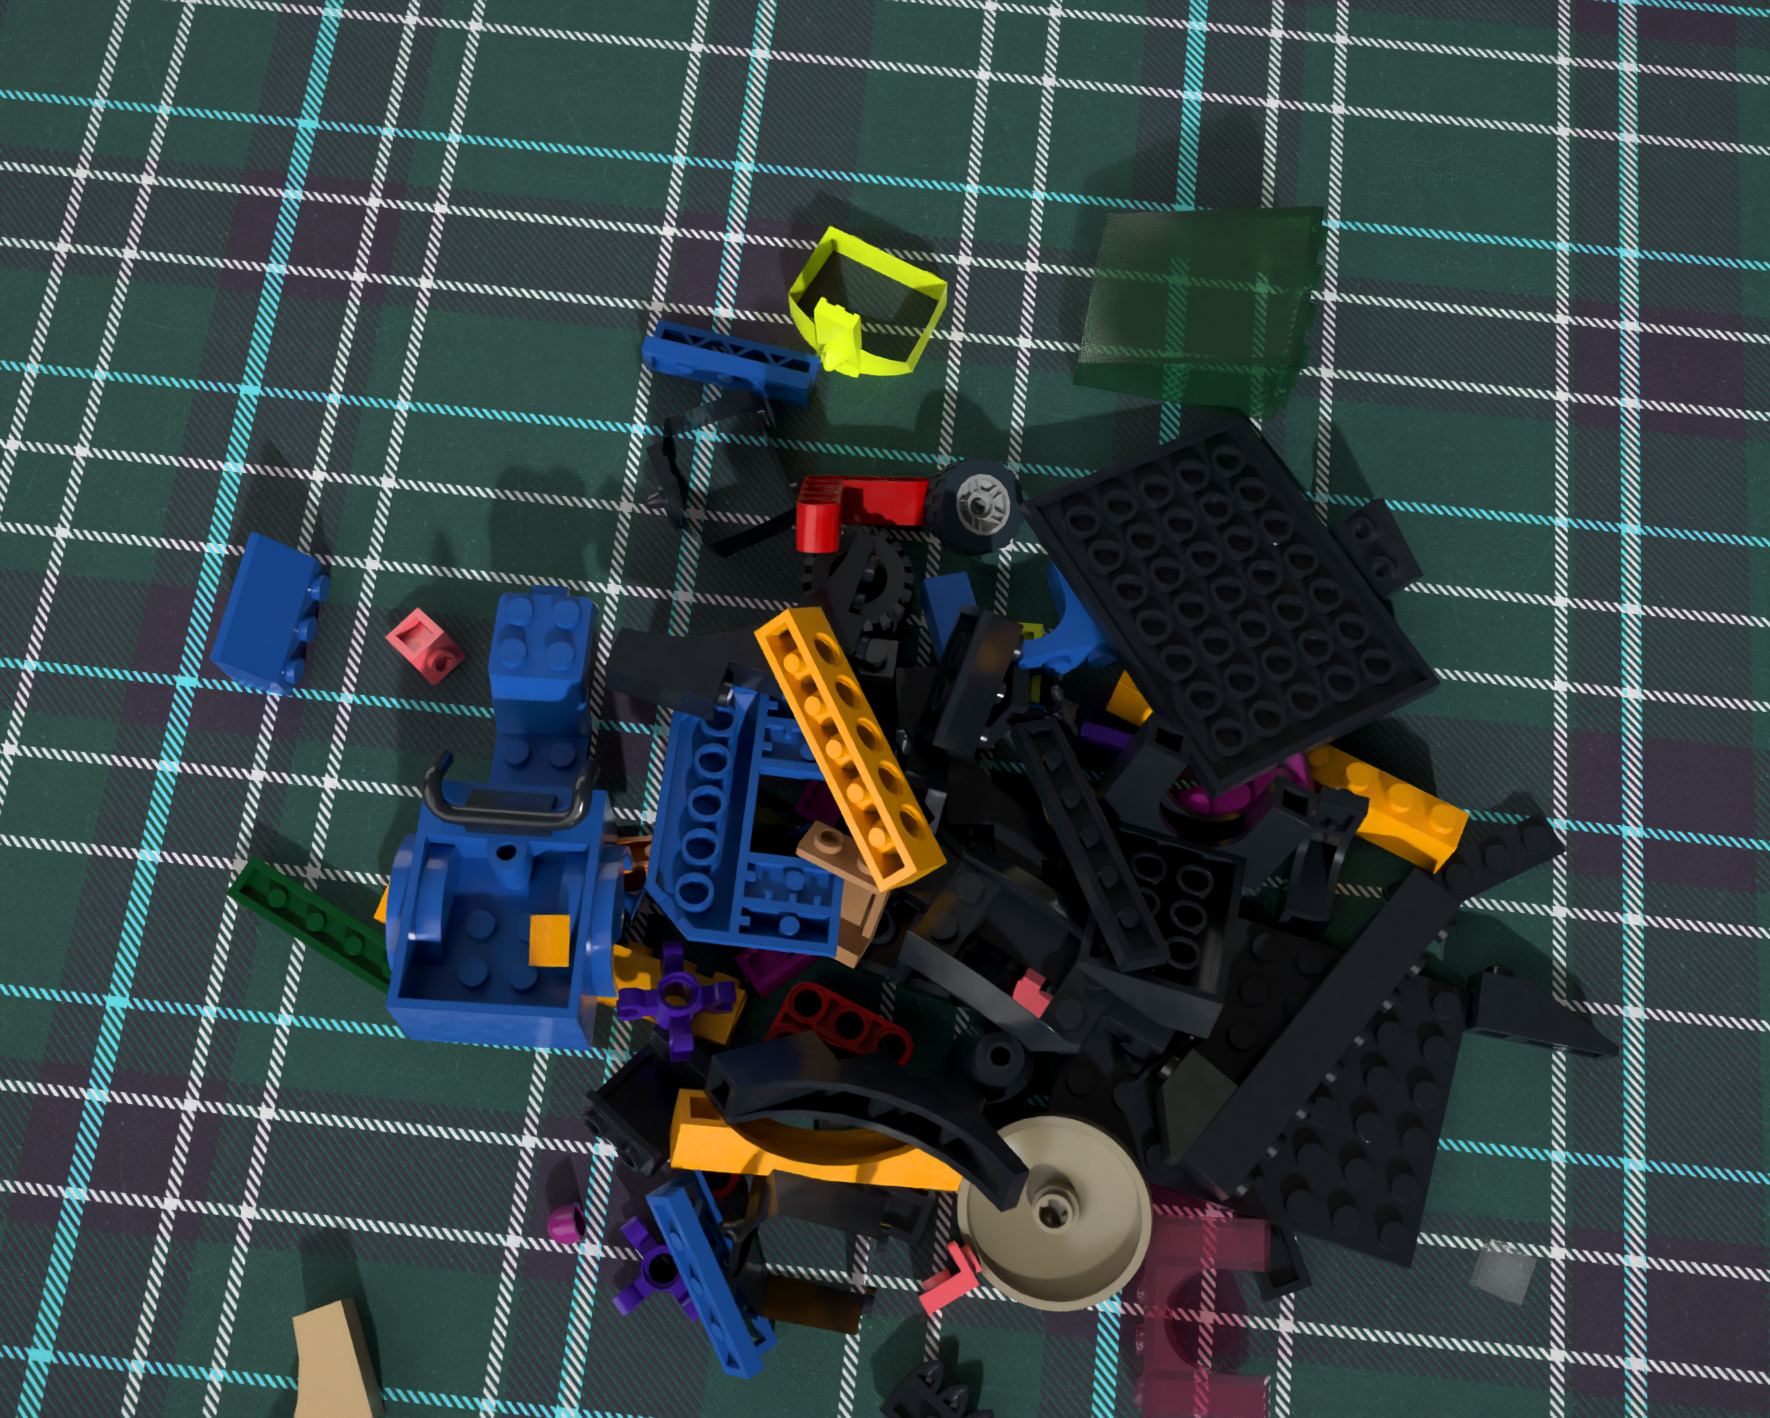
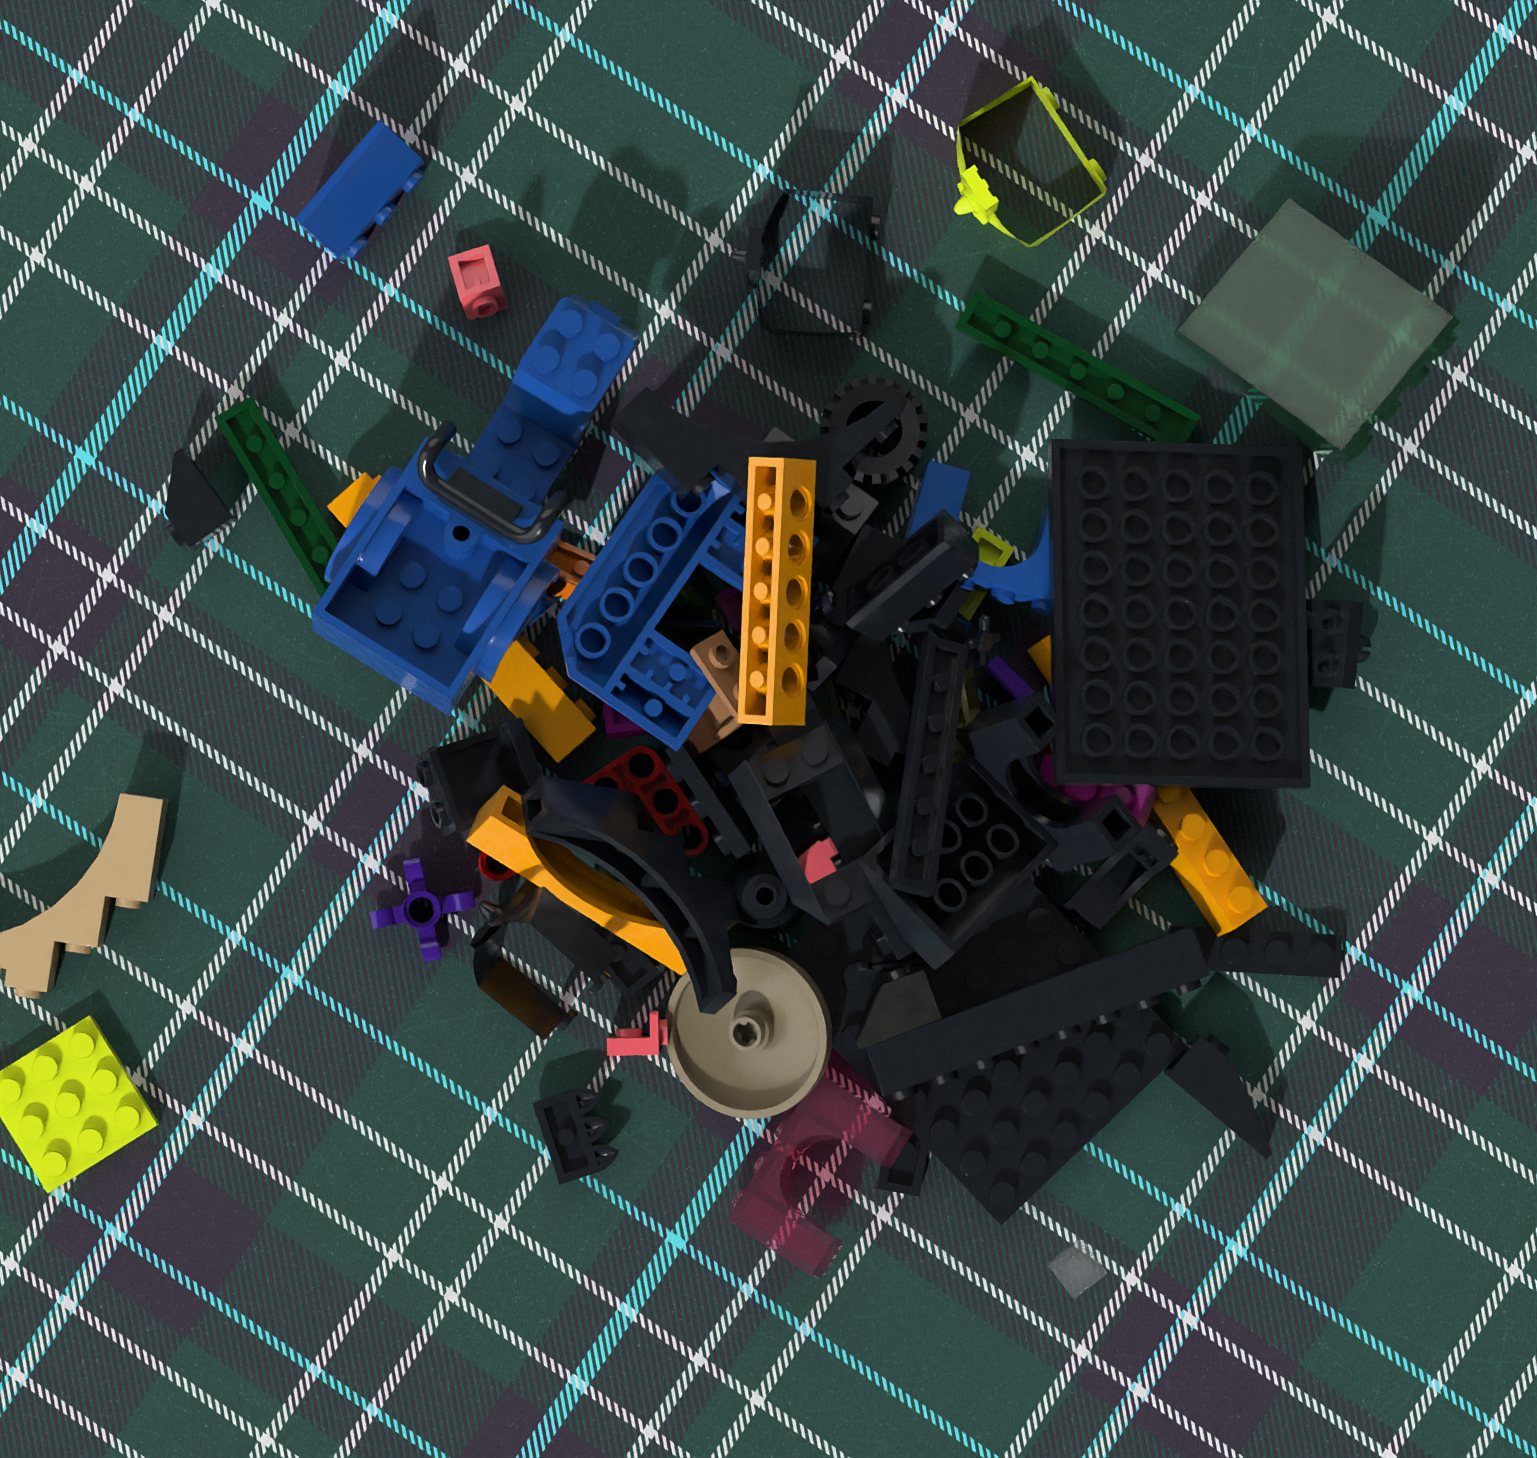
camera: 30 degrees right, 15 degrees up
(242, 988) = (193, 504): none -> black slope
(549, 940) = (460, 622): light orange tile -> none
(567, 1224) = (362, 834): magenta hinge -> none
(703, 1274) = (450, 931): blue fence -> none
(715, 999) = (565, 723): dark purple pin -> none
(731, 369) = (868, 163): blue fence -> none
(836, 500) = (912, 349): red beam -> none
(890, 1002) = (706, 802): none -> black plate
(992, 492) = (1010, 436): black wheel -> none
(1019, 448) = (1076, 371): none -> dark green plate

